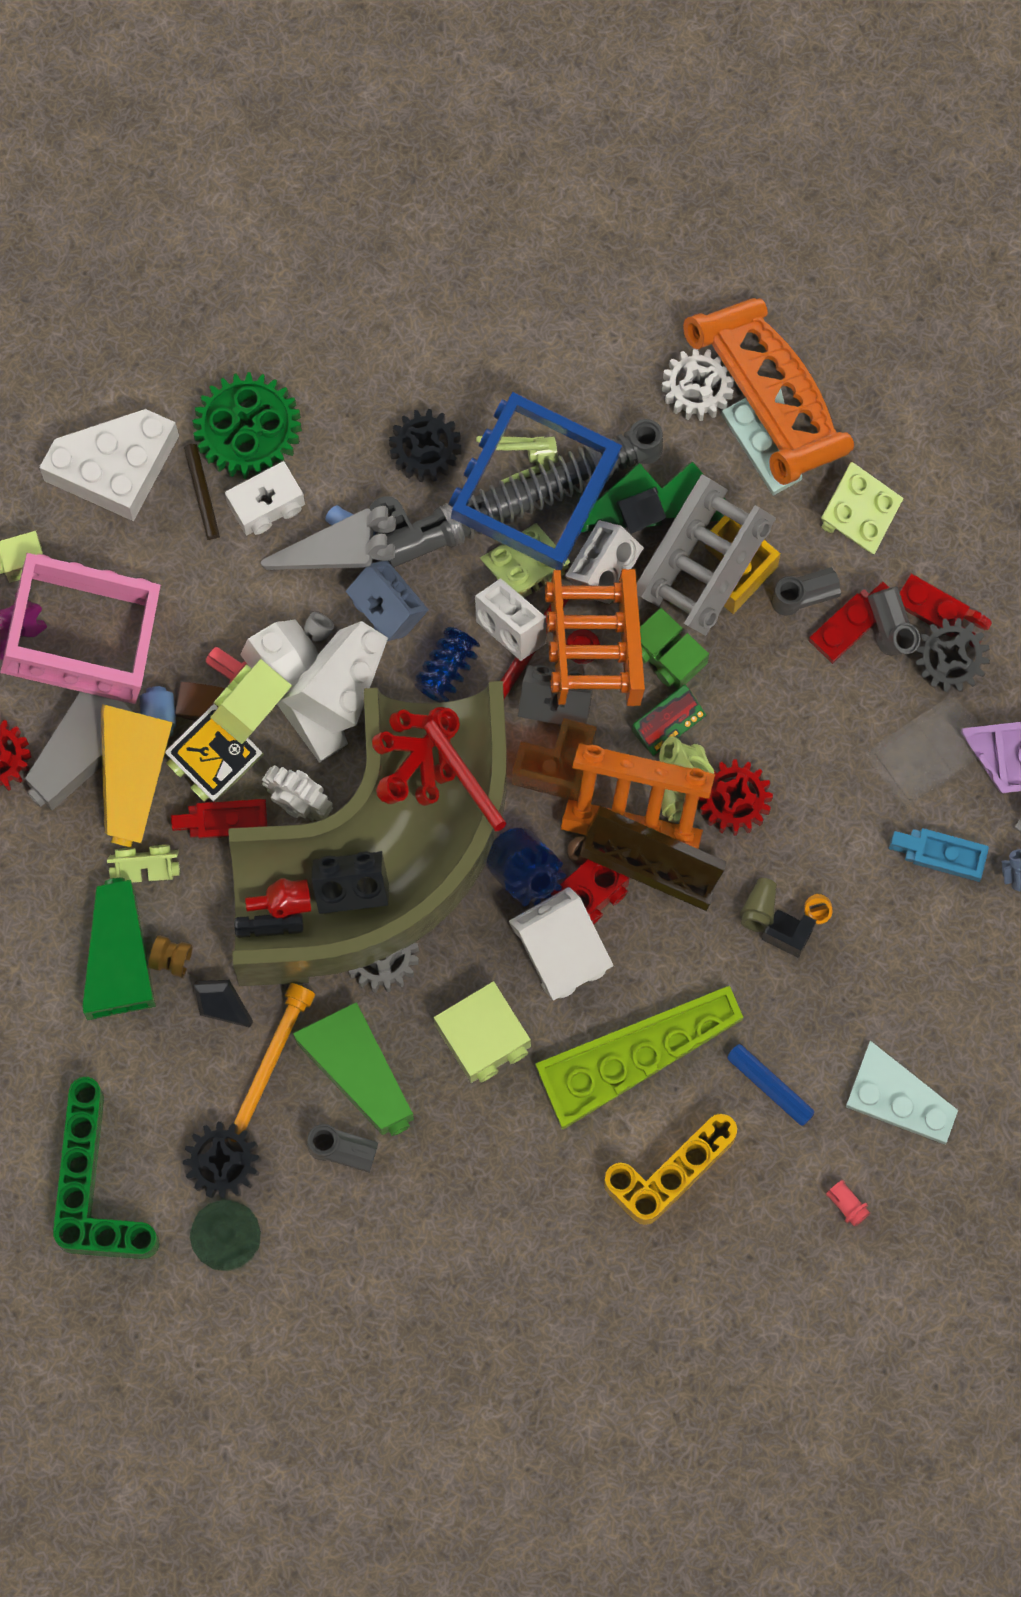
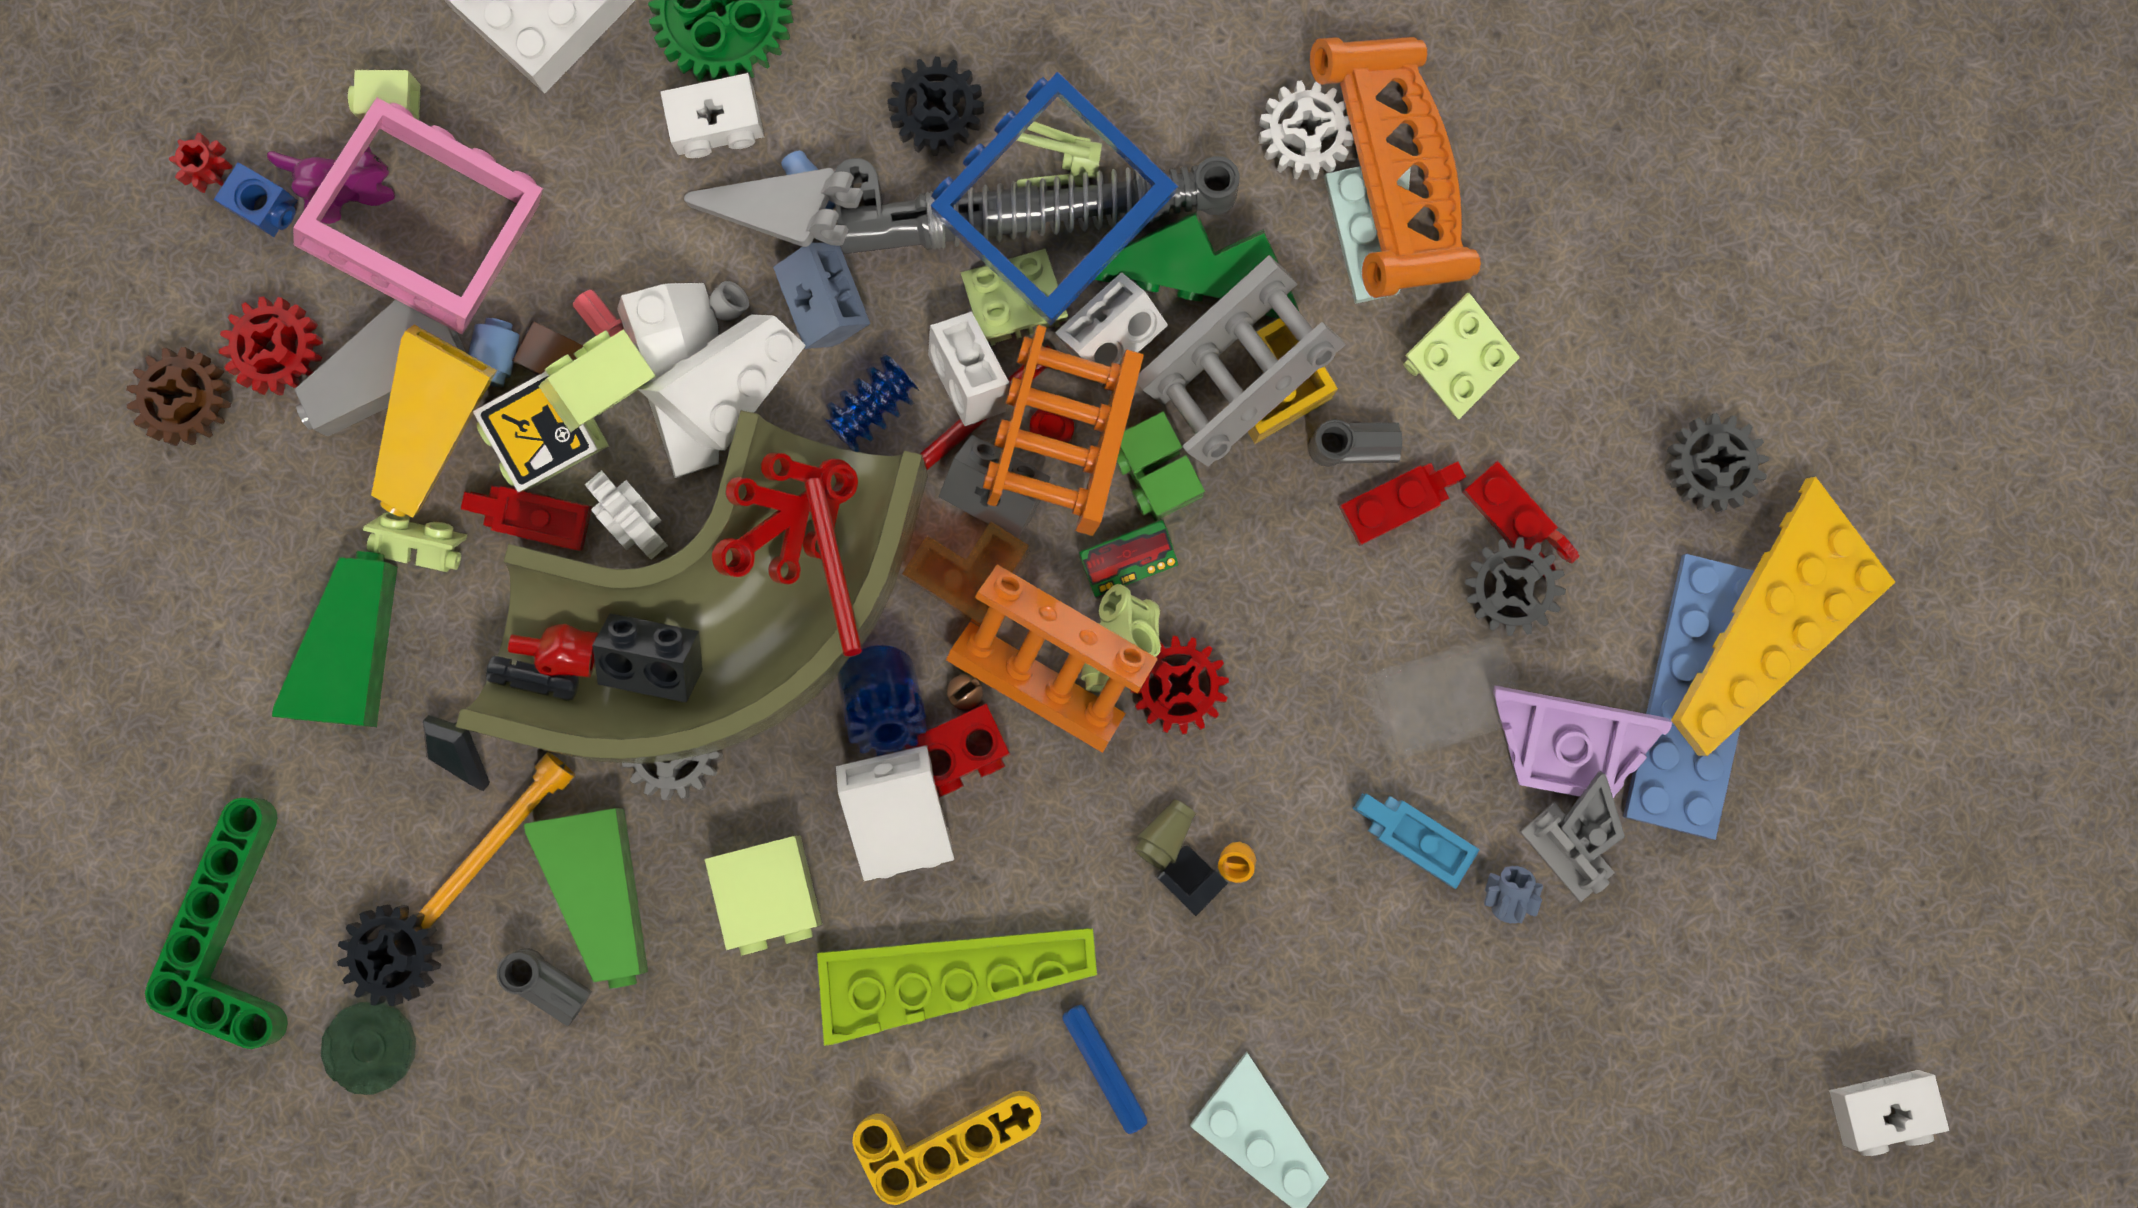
camera: 15 degrees right, 10 degrees up
(170, 956) = (408, 671): pearl gold wheel -> none
(201, 491) = (640, 82): dark brown bar -> none
(641, 510) = (1178, 276): black panel -> none
(653, 853) = (1049, 729): dark brown fence -> none
(893, 619) = (1453, 518): dark grey piece -> none

